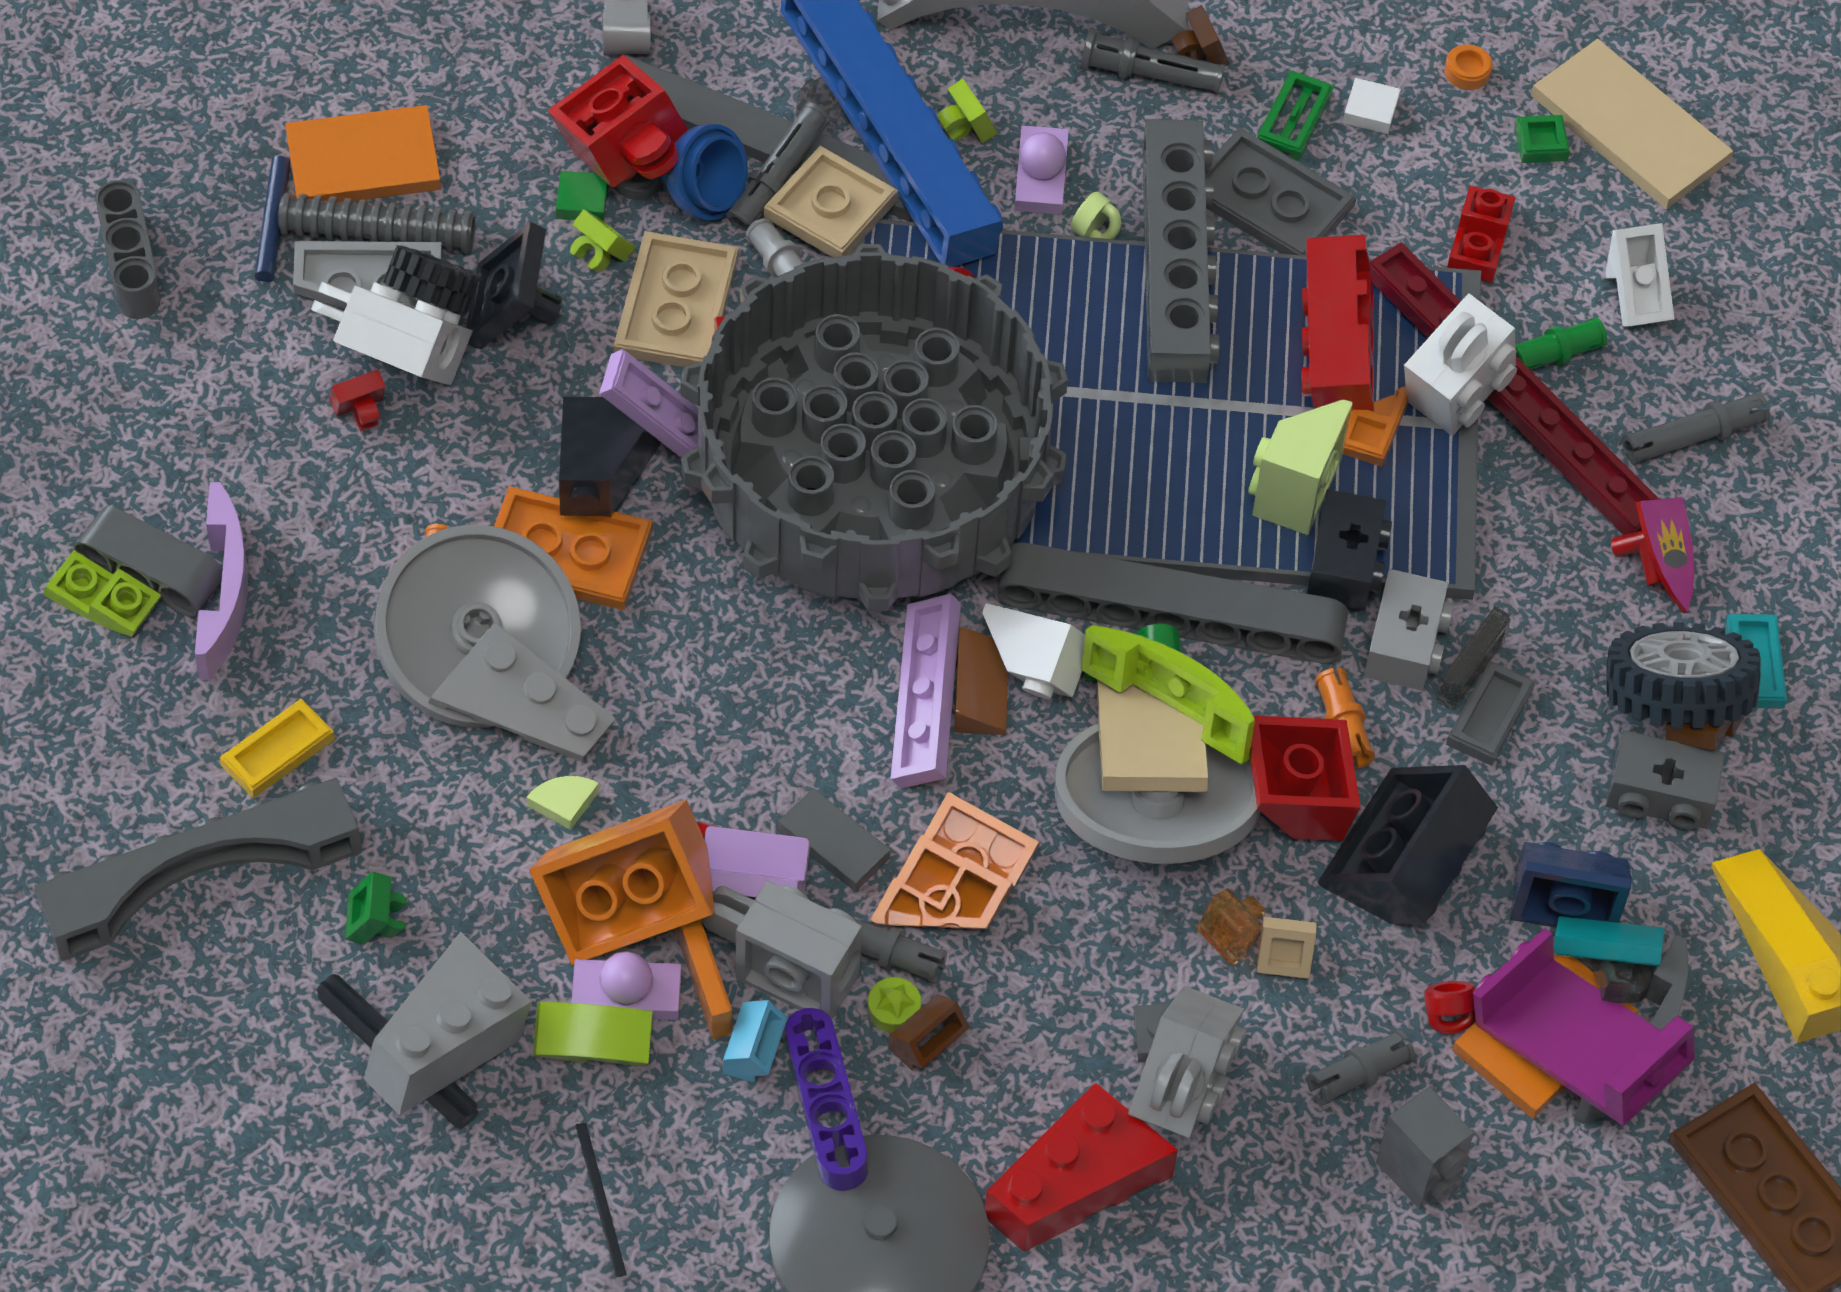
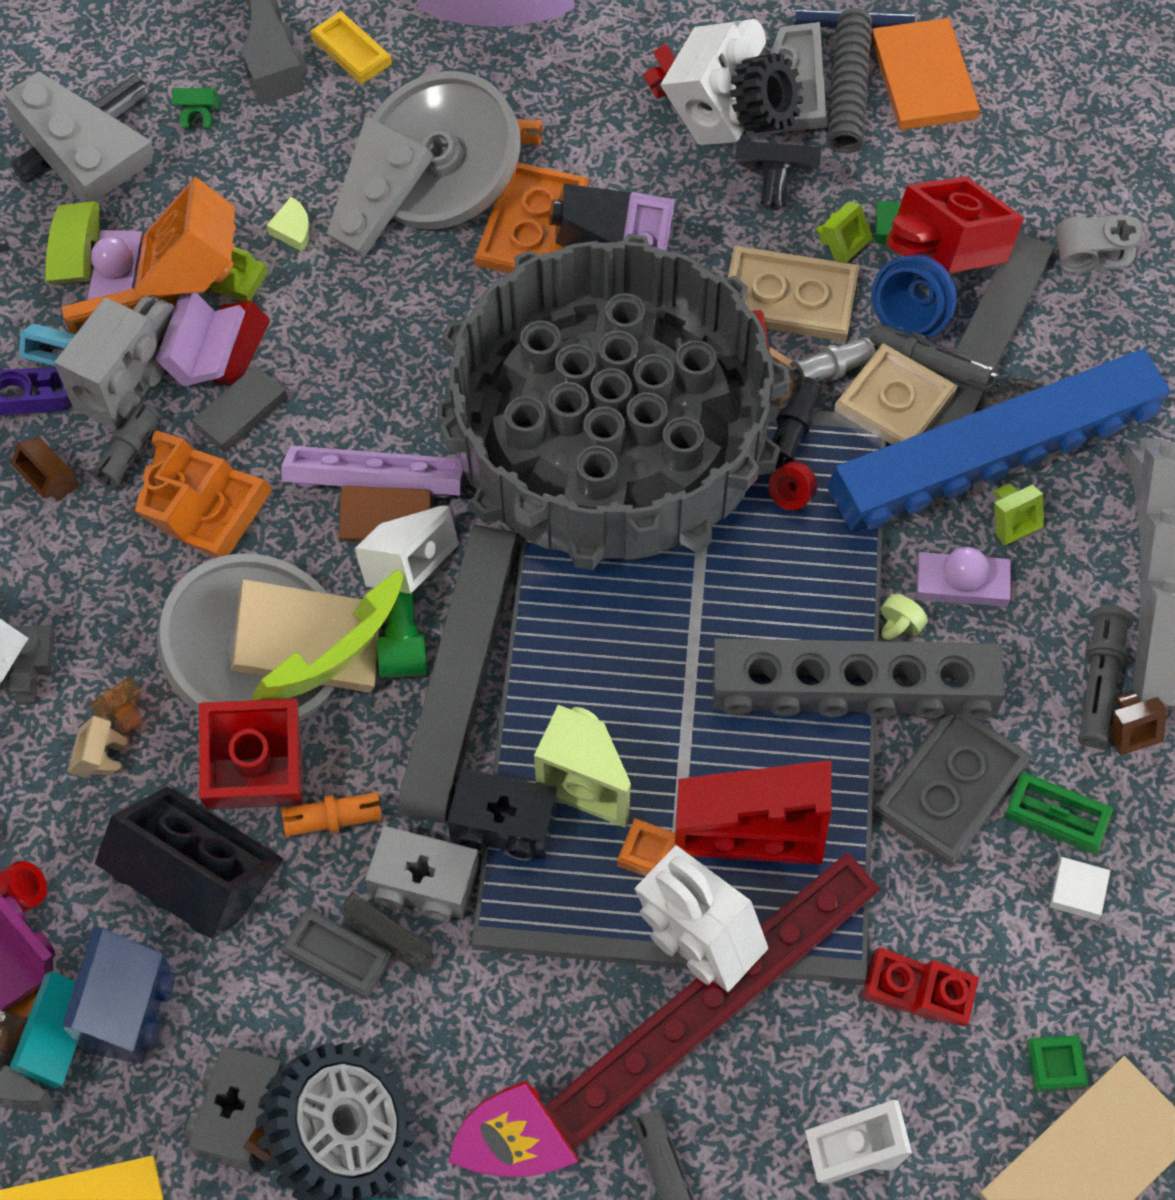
camera: 95 degrees right, 5 degrees up
(892, 1003) = (80, 449): lime tile -> none
(1468, 67) = (1146, 993): orange tile -> none
(1561, 344) = (774, 1052): green pin -> none

